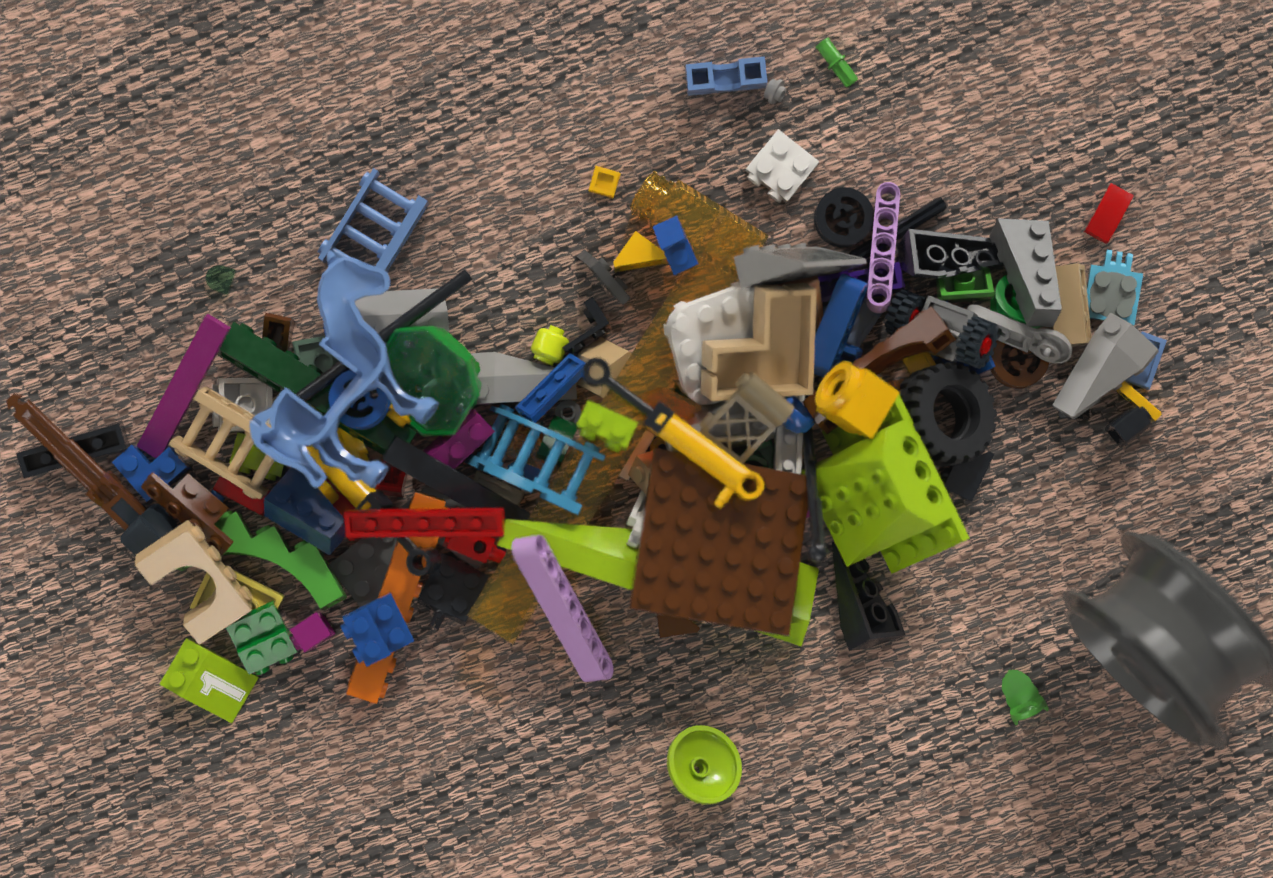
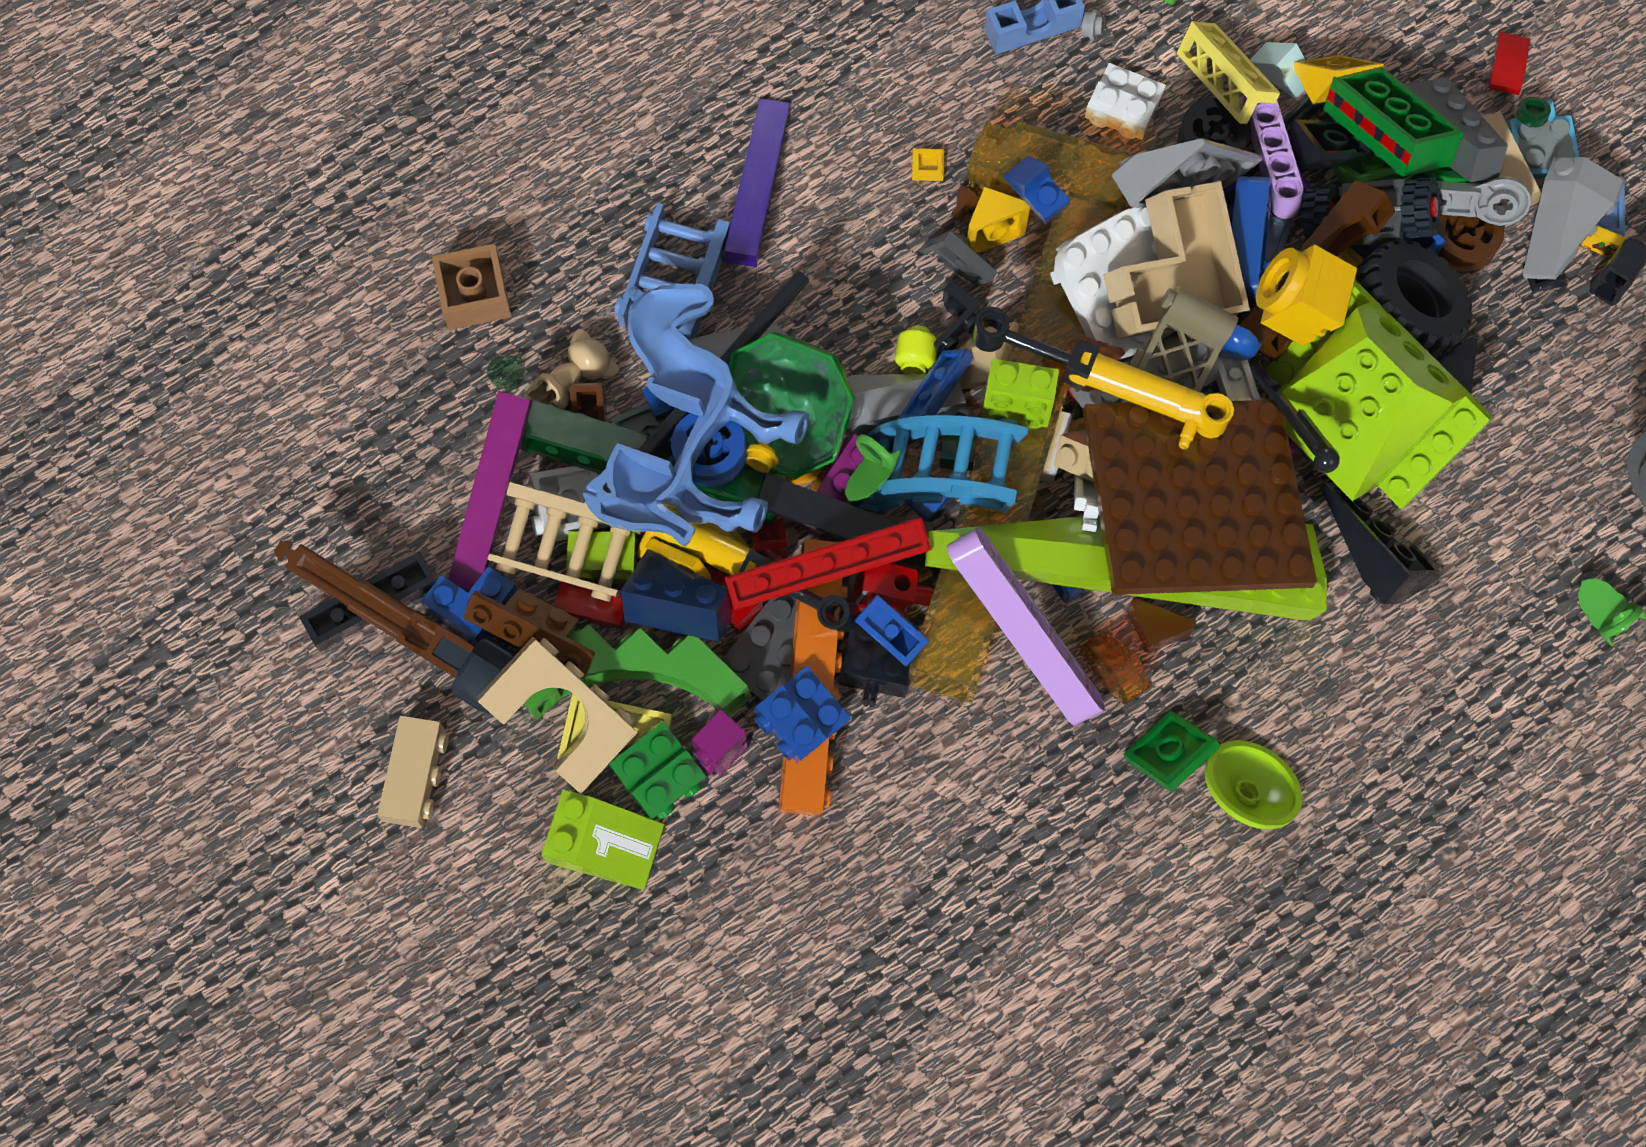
camera: 10 degrees left, 15 degrees down
(78, 591) = (412, 772): none -> tan brick
(208, 202) = (471, 286): none -> medium nougat brick
(286, 287) = (586, 359): none -> tan animal
(460, 585) = (891, 630): none -> blue slope
(461, 164) = (757, 183): none -> dark purple slope
(480, 450) = (872, 471): none -> bright green piece
(626, 224) = (966, 202): none -> reddish brown rock
(629, 644) = (1115, 667): none -> clear orange slope
(651, 722) = (1171, 751): none -> green tile
(871, 164) = (1228, 61): none -> light yellow fence
(920, 169) = (1277, 65): none -> light aqua slope
(957, 190) = (1318, 73): none -> yellow slope
(983, 256) = (1393, 121): none -> green brick
(1110, 265) = (1533, 112): none -> dark green tile

